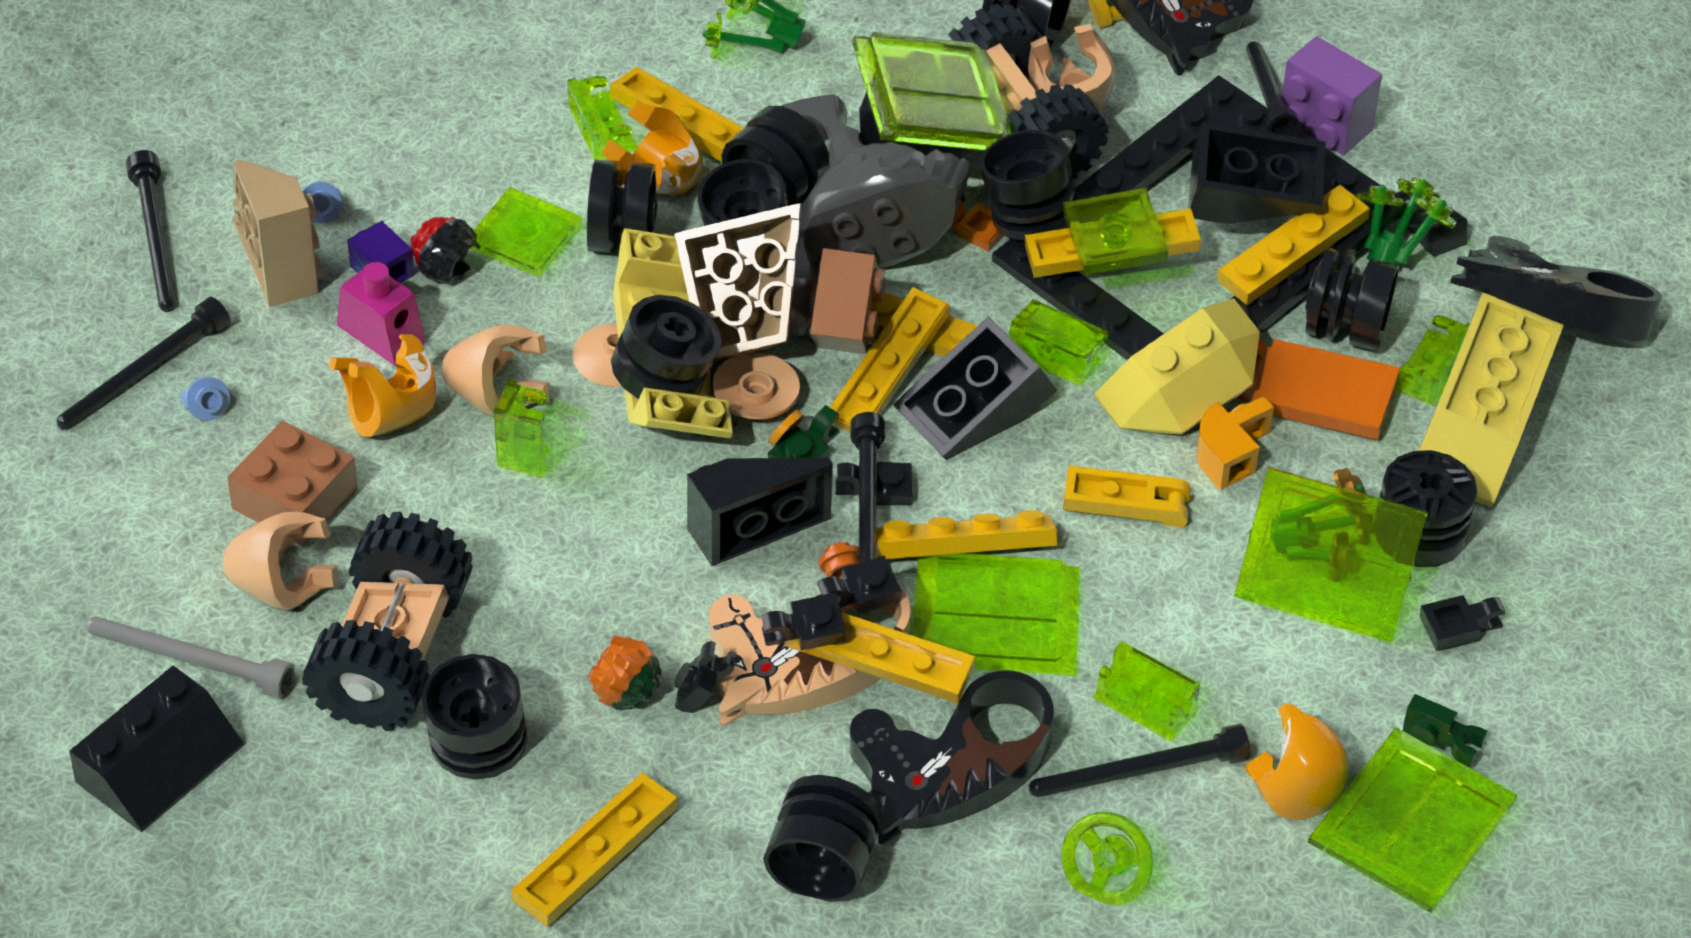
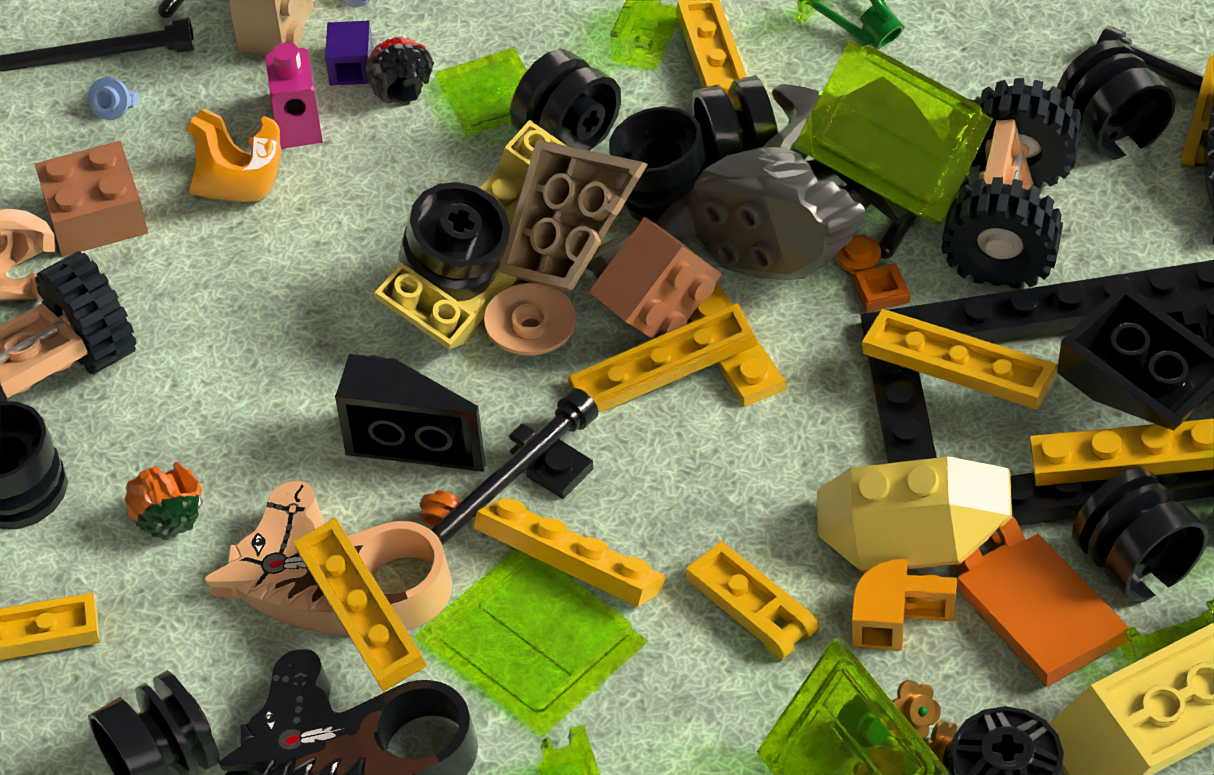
camera: 45 degrees right, 0 degrees up
(478, 358) = (322, 179): light nougat piece -> none
(520, 430) = (288, 246): clear neon green hinge -> none
(665, 145) = (658, 83): light orange piece -> none
(698, 679) = (215, 538): black plate -> none
(786, 426) = (516, 368): light orange piece -> none
(811, 442) = (518, 397): dark green plate -> none
(812, 621) = (317, 543): black plate -> none
(864, 585) = (407, 541): black plate -> none
(975, 391) = (713, 428): black slope -> none
(1027, 182) = (923, 262): black wheel -> none
(1058, 341) = (831, 423): clear neon green hinge -> none
(1091, 45) = (1093, 206): light nougat piece -> none
(1115, 231) = (955, 346): clear neon green plate -> none

